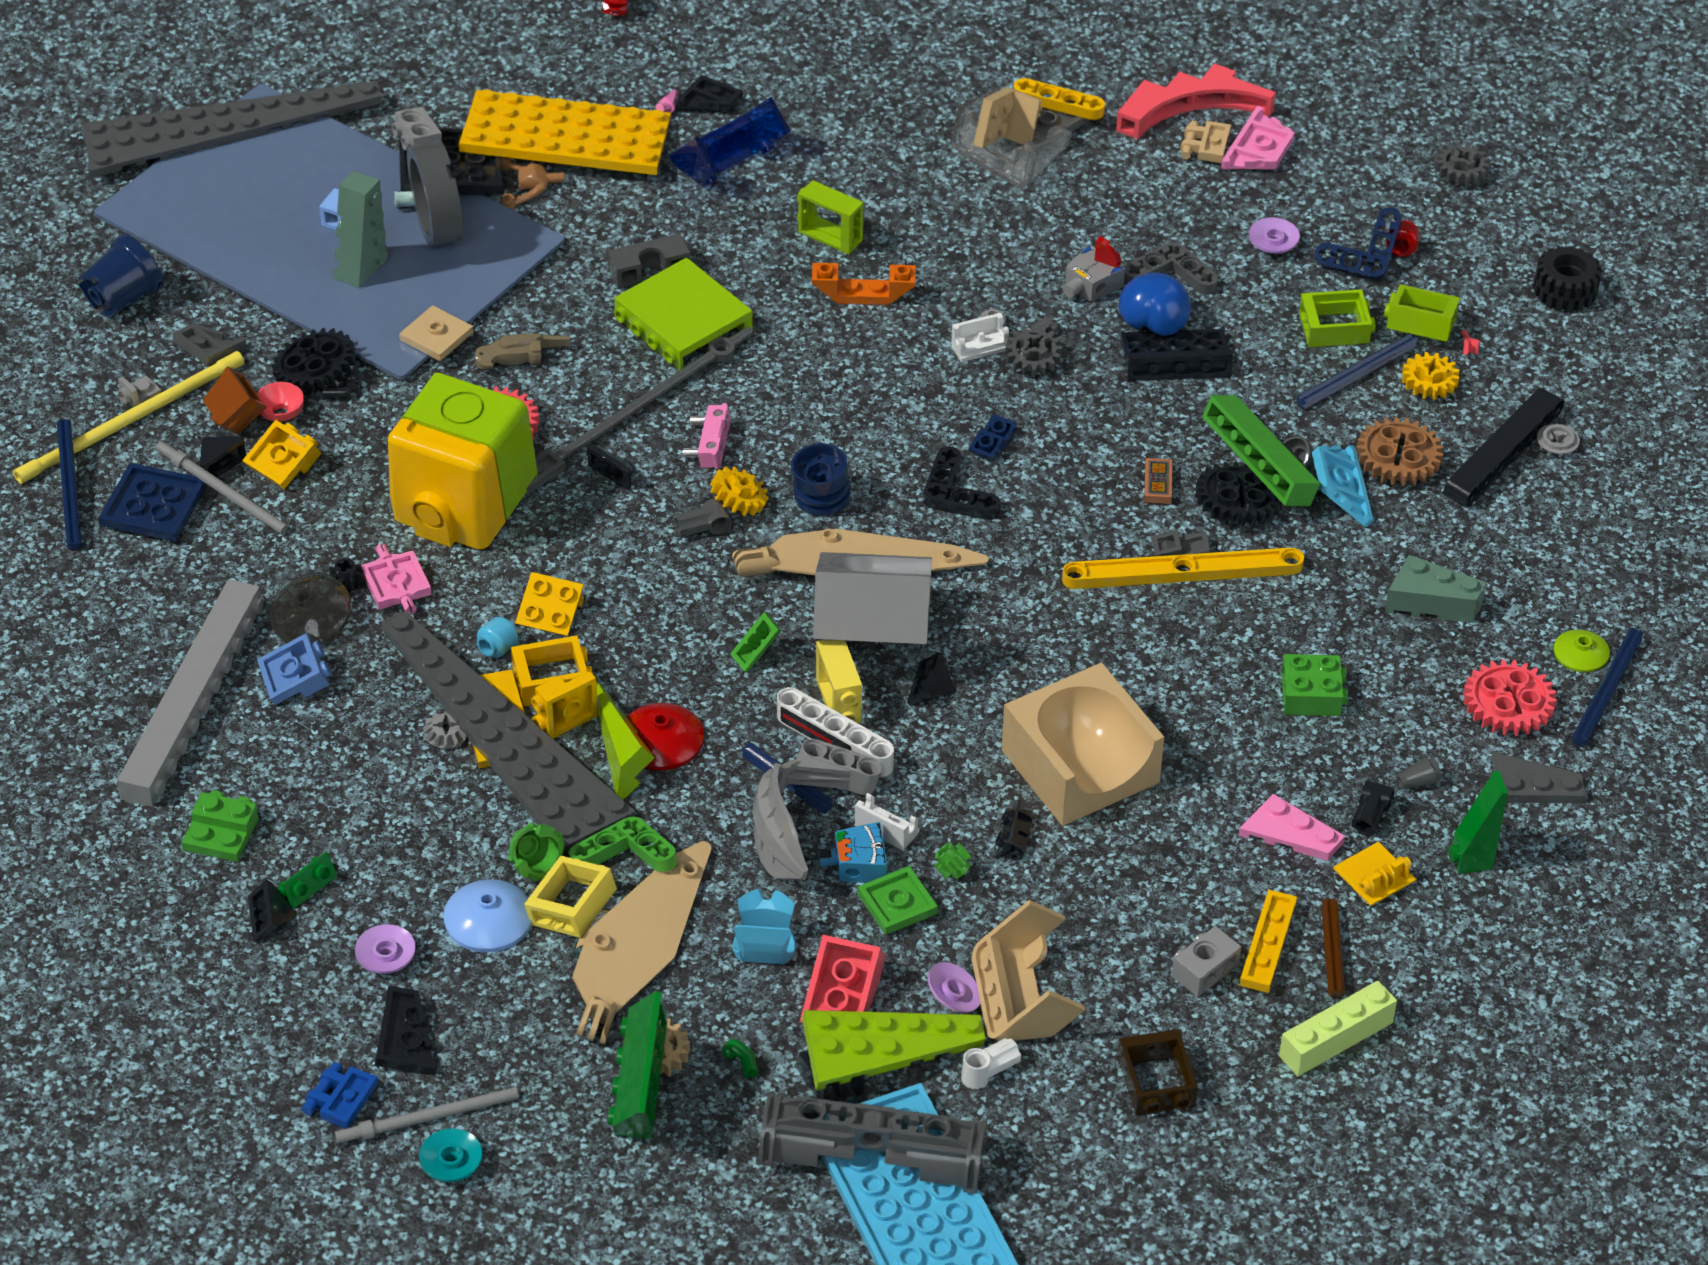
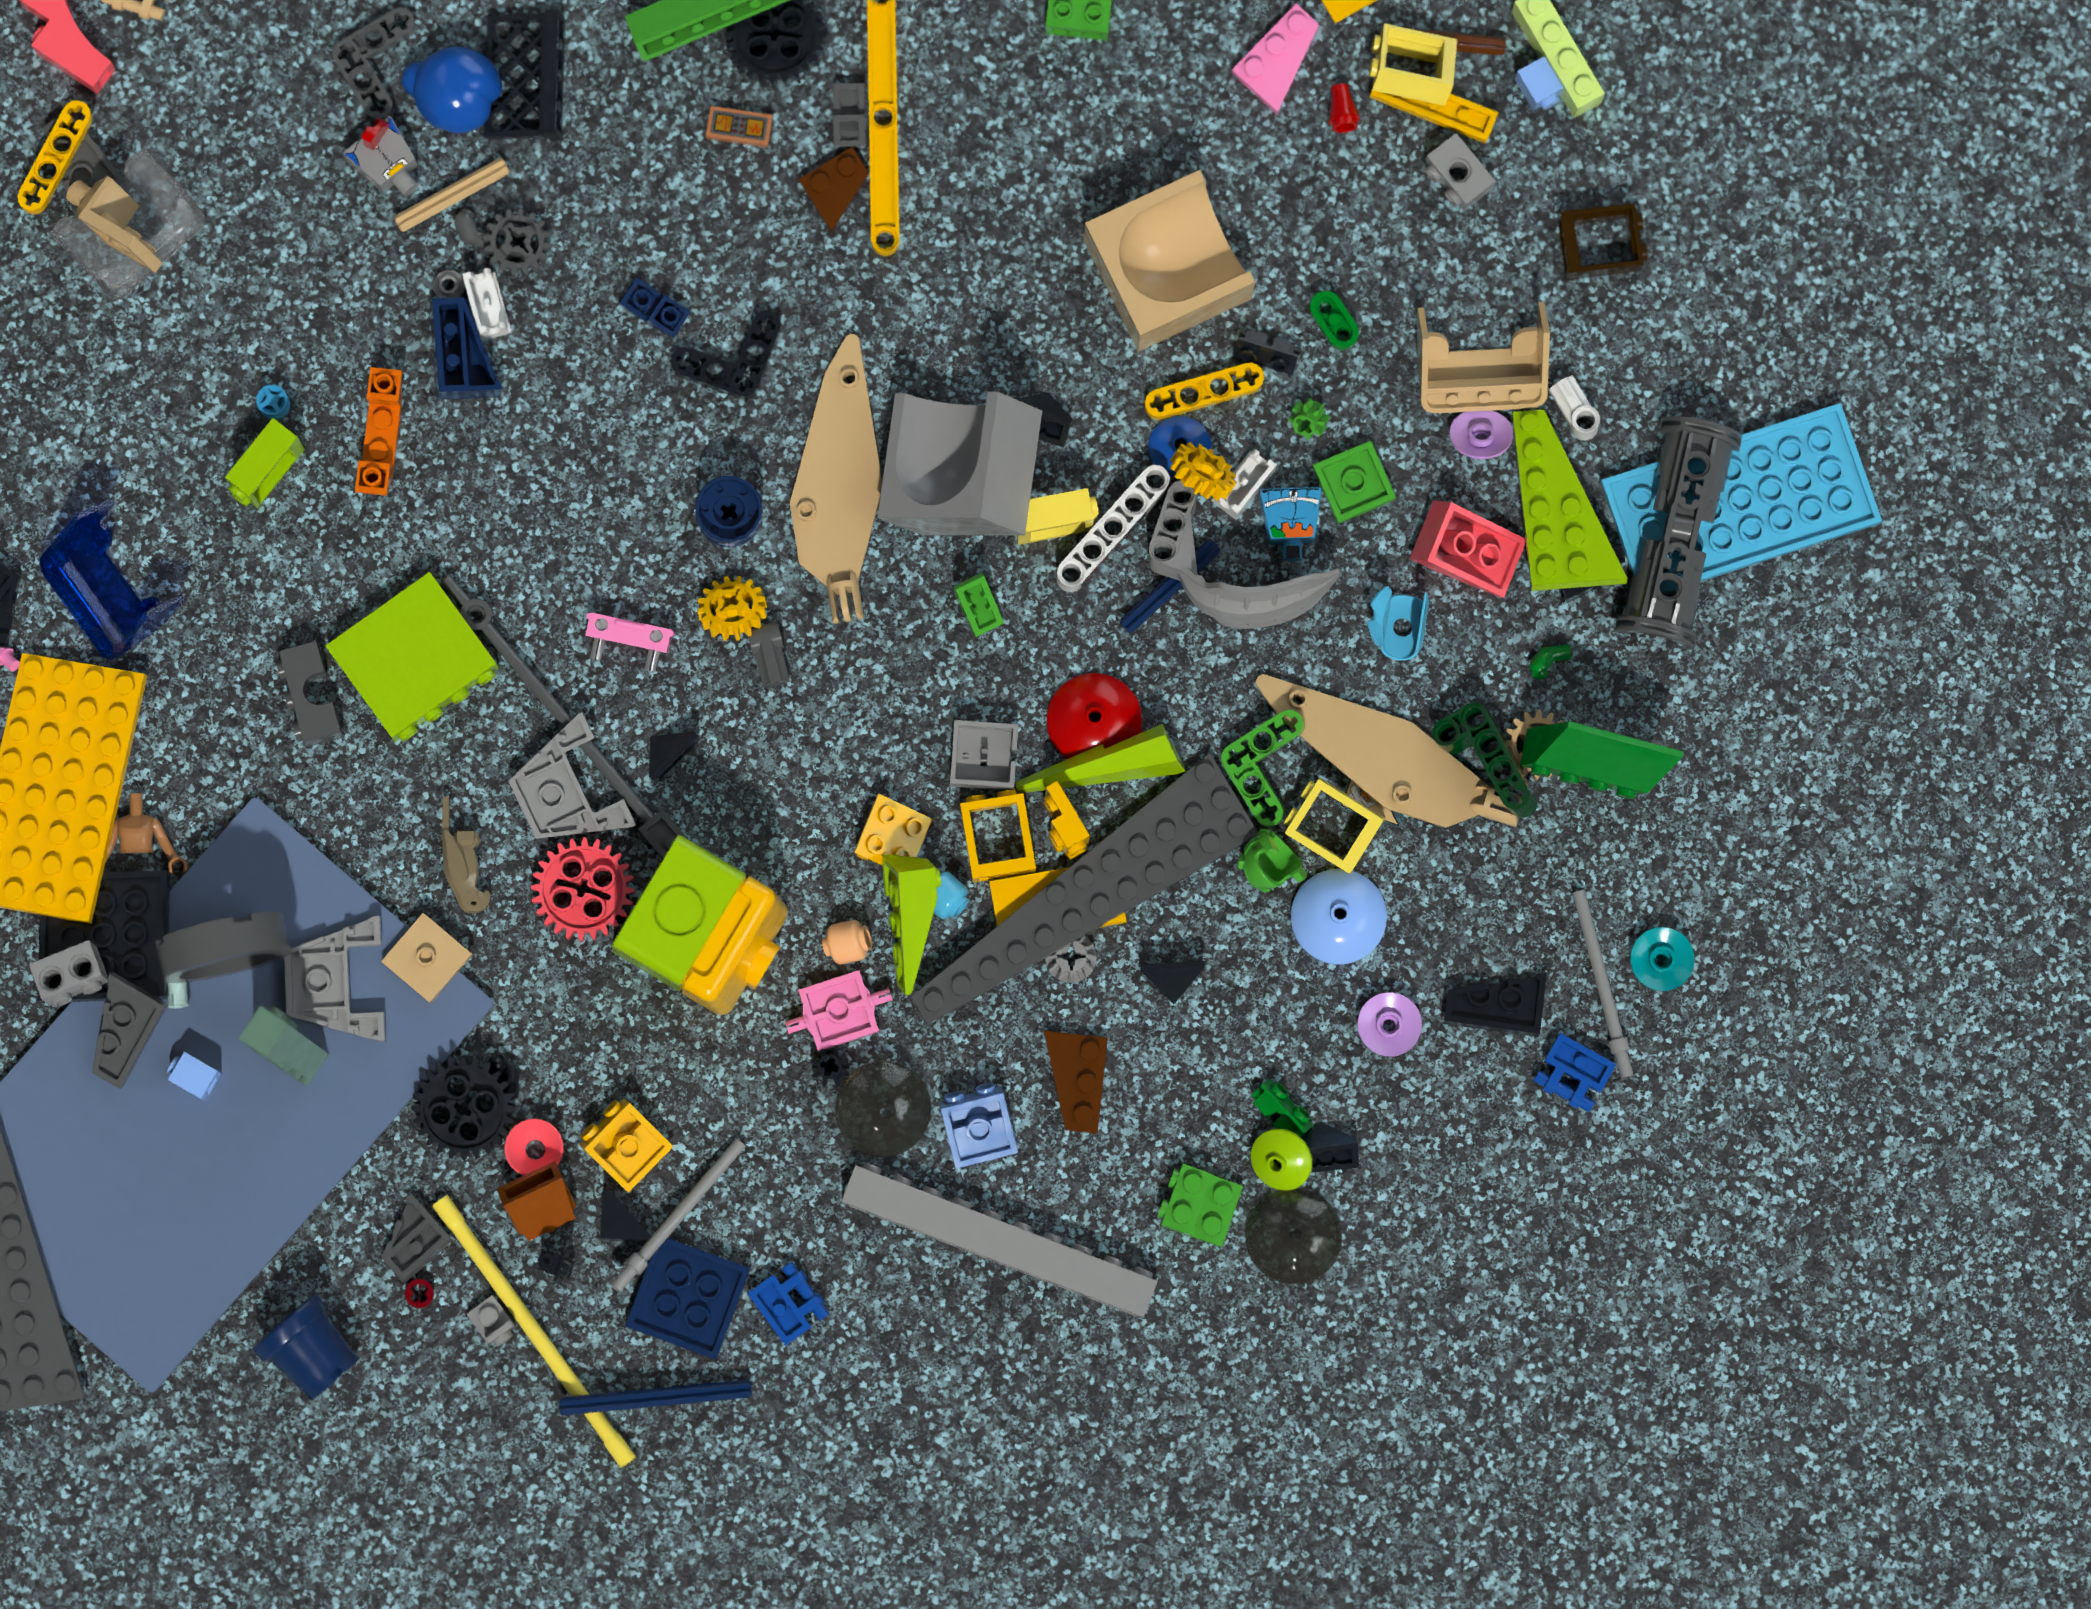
camera: 90 degrees left, 35 degrees up
(141, 556) = (780, 1310): none -> blue plate
(164, 345) = (409, 1293): none -> dark red bush
(179, 413) = (557, 1265): none -> black hinge
(190, 898) = (1281, 1256): none -> clear smoke dish
(258, 874) = (1289, 1151): none -> lime dish
(339, 740) = (1078, 1077): none -> reddish brown wing
(385, 168) = (125, 1029): none -> dark grey wing
(415, 273) = (320, 984): none -> light grey wing
(426, 796) = (1172, 978): none -> black slope
(455, 579) = (847, 942): none -> light nougat head
(487, 599) = (913, 895): none -> lime wedge
(577, 396) = (553, 795): none -> light grey wing
(607, 1007) = (1494, 761): none -> dark green beam
(622, 649) = (979, 743): none -> light grey piece
(883, 228) = (270, 396): none -> dark azure wheel
(889, 792) = (1203, 471): none -> yellow gear
(917, 782) = (1167, 432): none -> blue dish
(929, 318) = (459, 356): none -> dark blue wedge
(967, 793) = (1205, 395): none -> yellow beam
(1044, 879) = (1334, 321): none -> green plate
(1069, 318) = (451, 194): none -> tan axle
(1116, 541) = (834, 186): none -> reddish brown wing
(1249, 873) = (1342, 110): none -> red cone
(1292, 933) = (1418, 46): none -> light yellow window
(1301, 1010) = (1539, 84): none -> light blue brick

